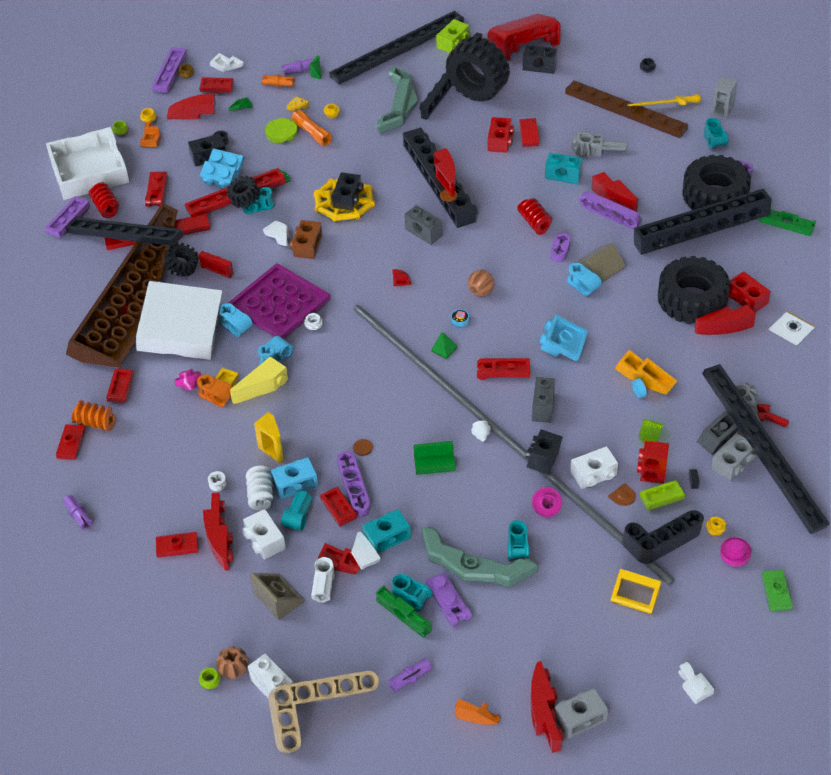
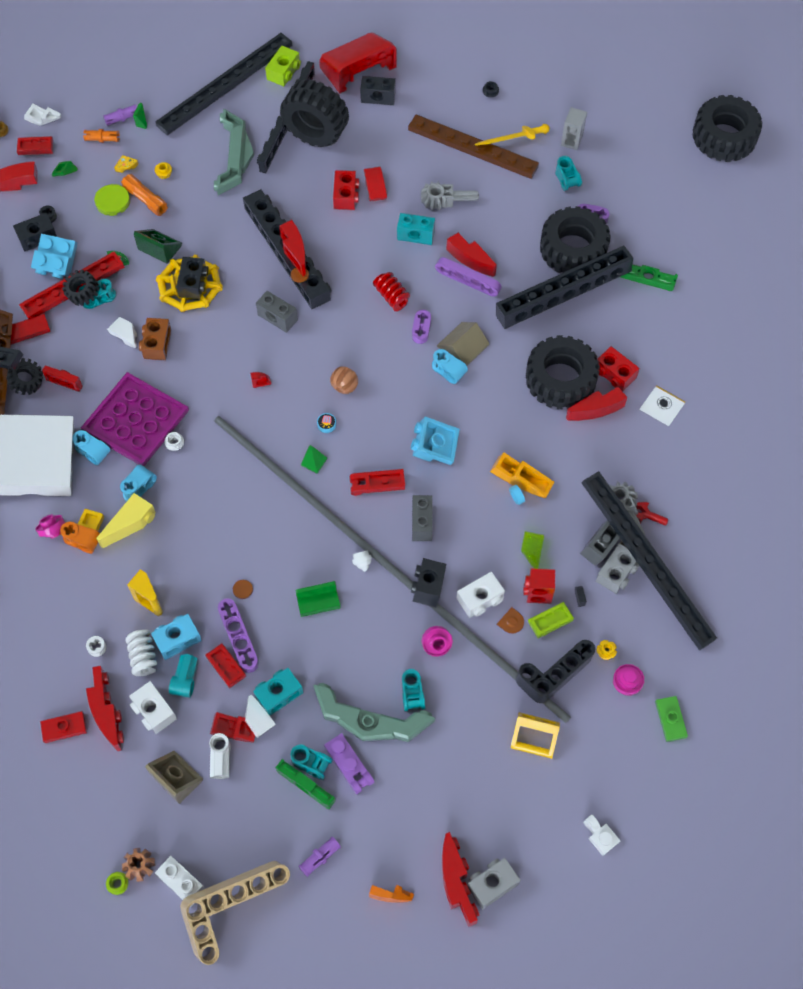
camera: 10 degrees left, 15 degrees up
(317, 167) = (156, 244): none -> dark green slope

